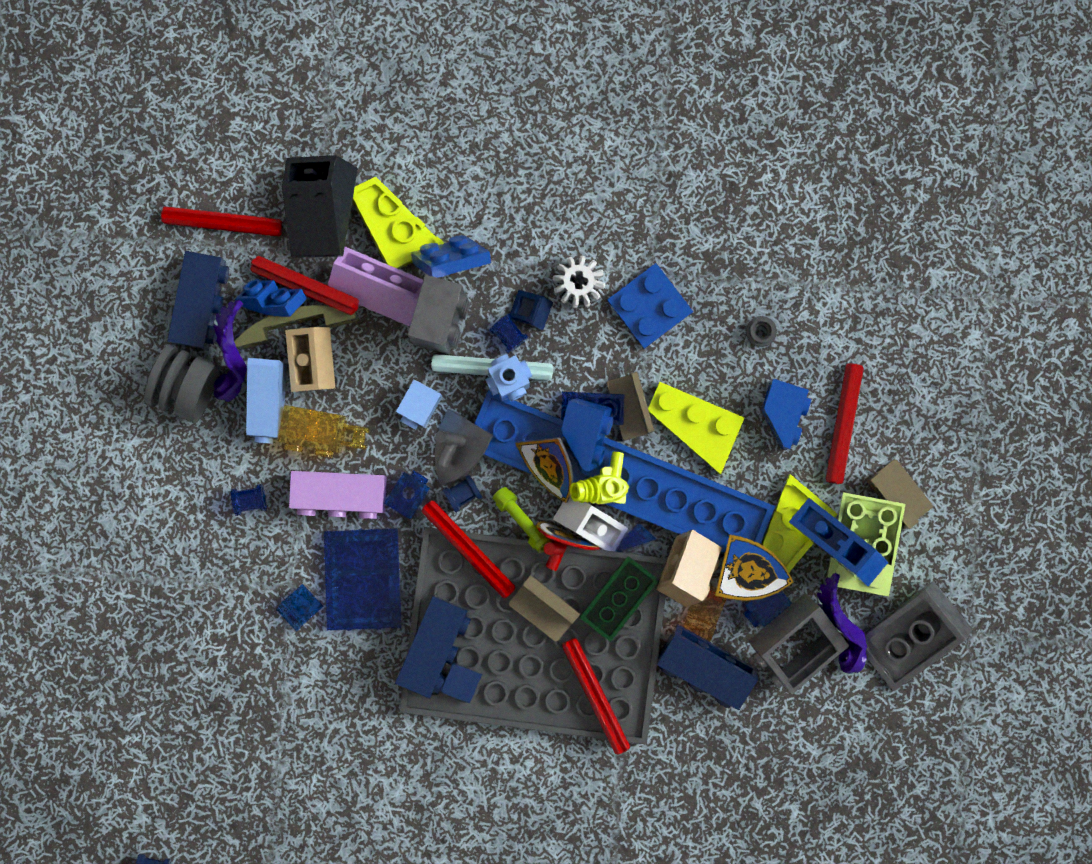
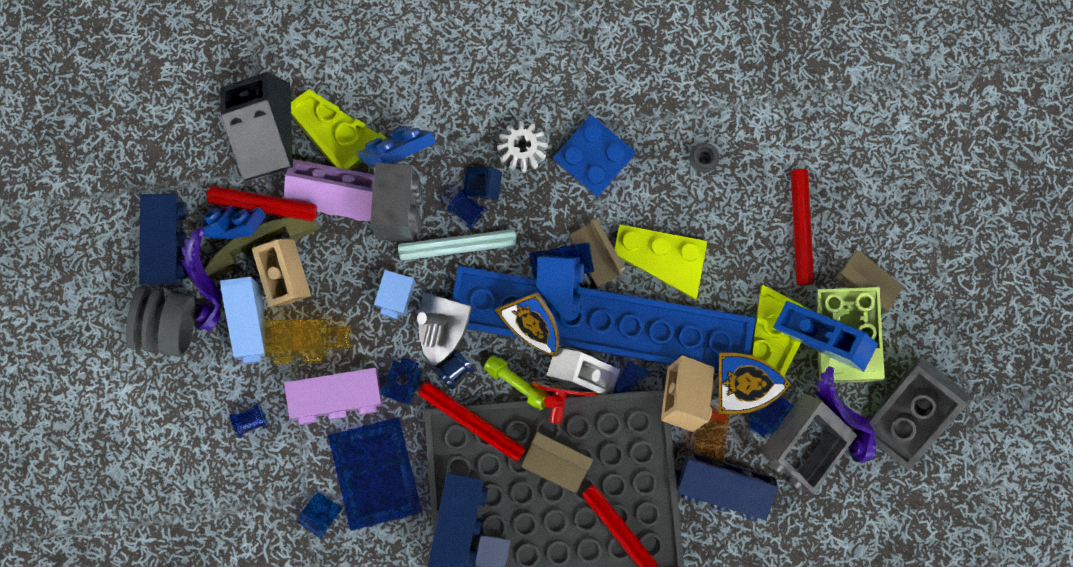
camera: 20 degrees left, 5 degrees down
(221, 221) = (170, 161): red axle -> none
(508, 389) = (475, 259): light blue brick -> none
(603, 488) = (589, 333): neon yellow piece -> none
(619, 598) = (627, 437): dark green piece -> none
(783, 409) = (742, 226): blue slope -> none

